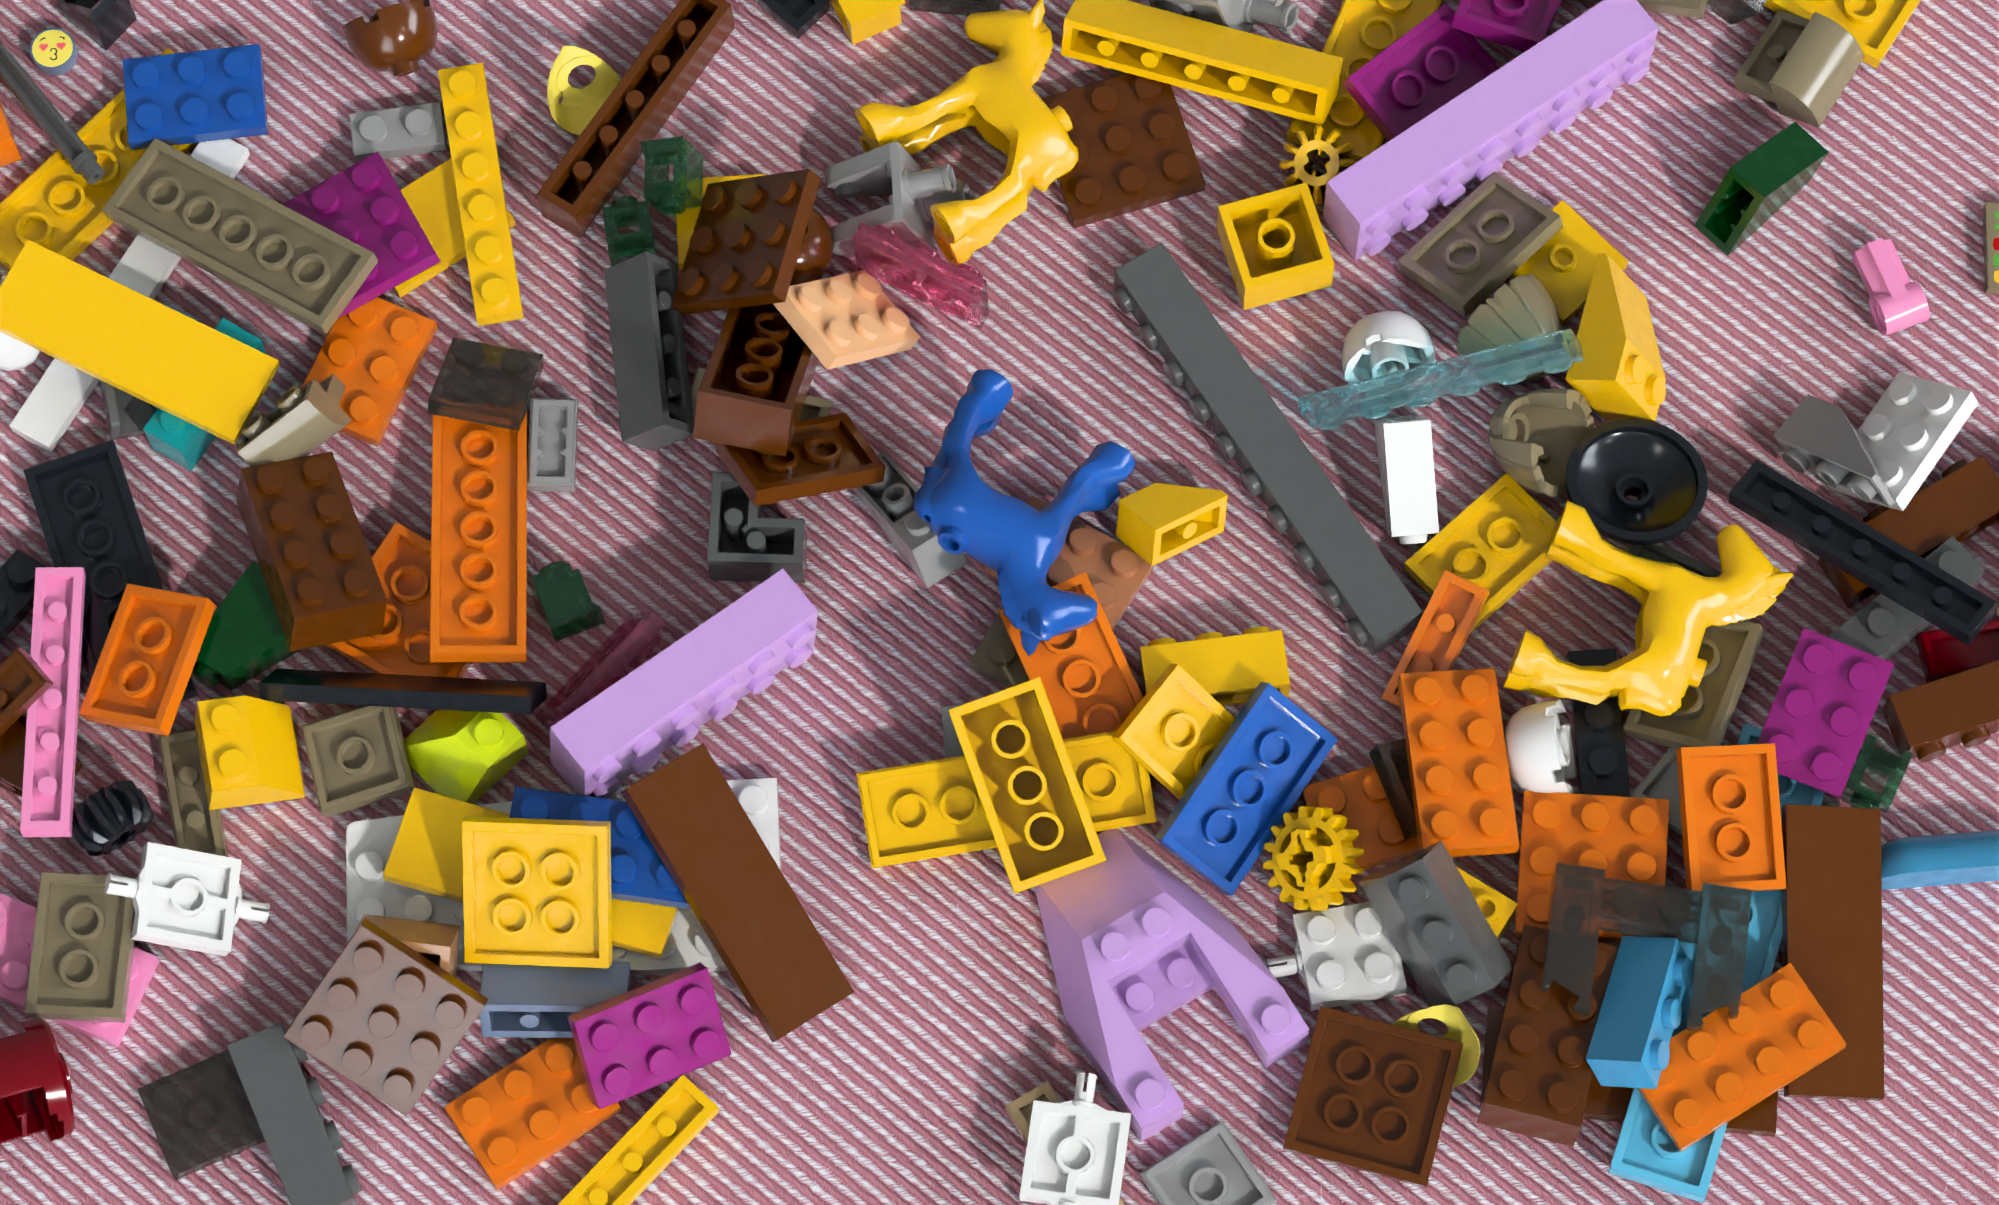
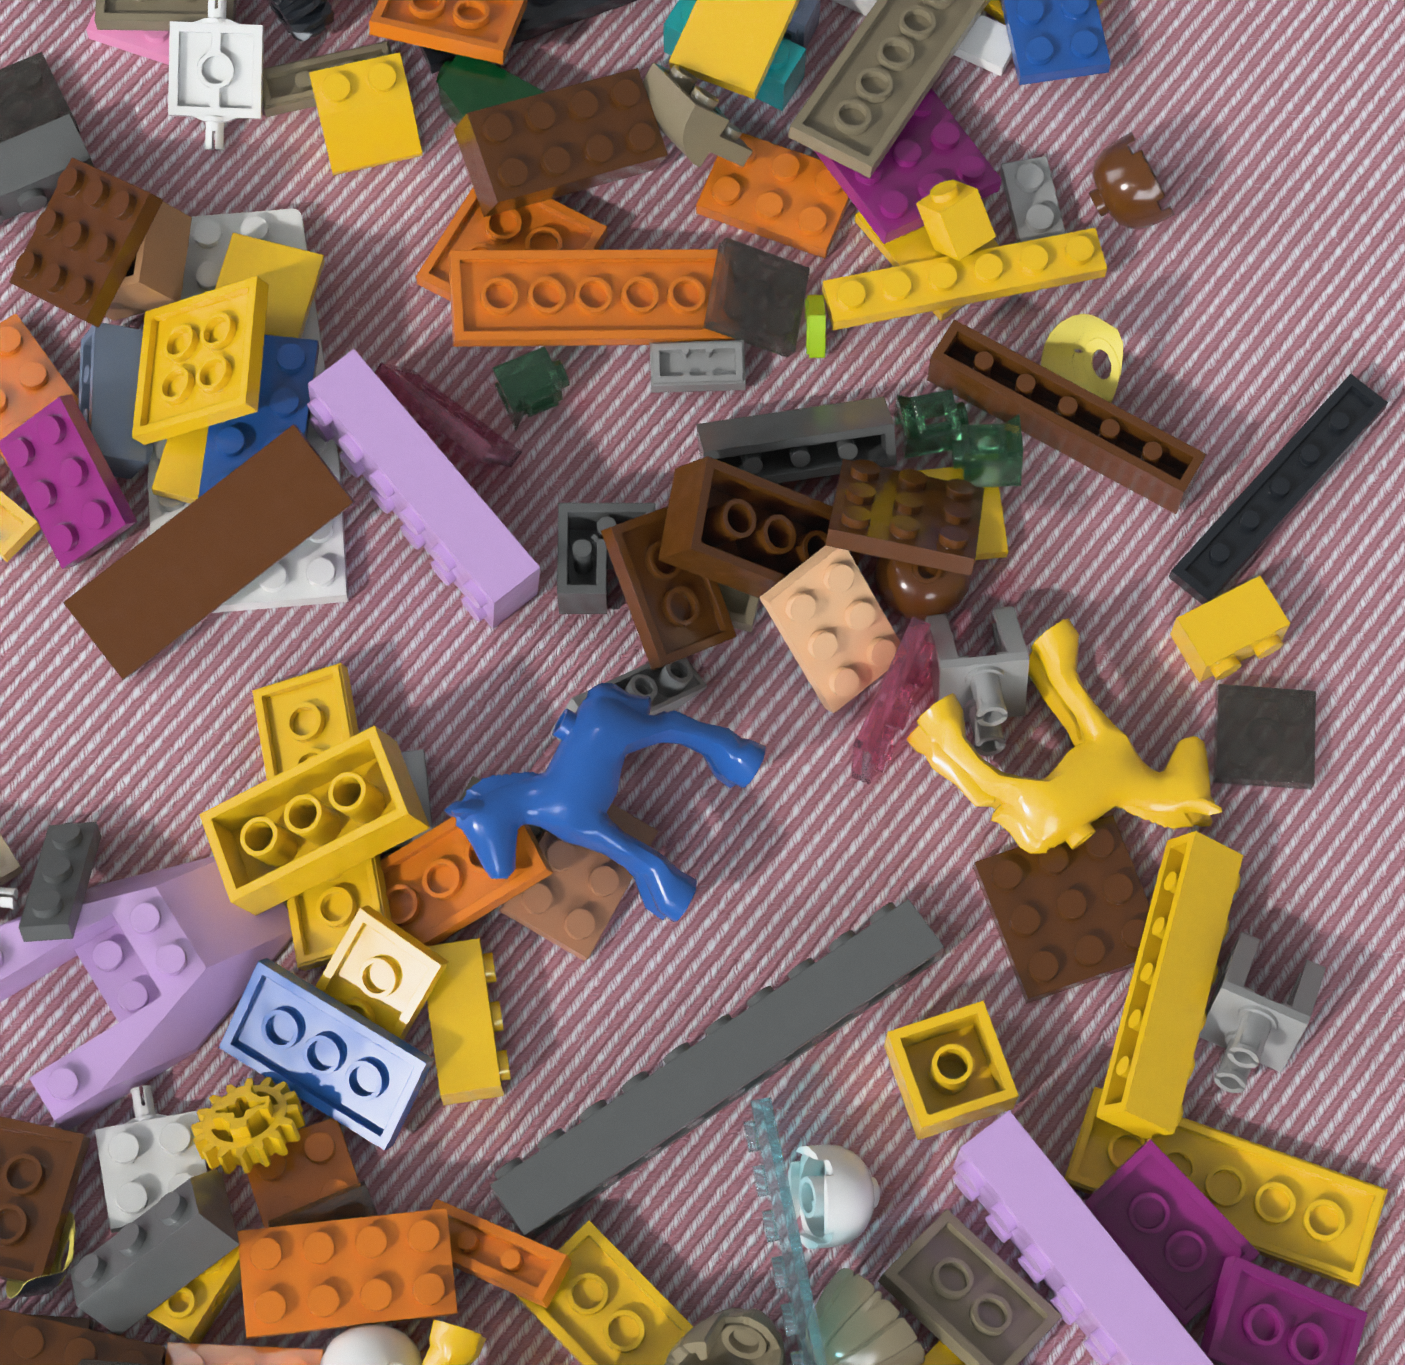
camera: 85 degrees right, 0 degrees up
(357, 758) = (366, 214): dark tan tile -> none
(403, 691) = (421, 240): black tile -> none
(426, 188) = (955, 219): none -> yellow brick
(464, 752) = (379, 308): neon yellow slope -> none
(517, 330) = (815, 326): none -> lime tile
(1070, 1032) = (60, 882): none -> dark grey plate
(1169, 519) = (629, 968): yellow slope -> none
(1303, 161) = (1073, 1112): yellow gear -> none
(1407, 477) = (689, 1219): white slope -> none

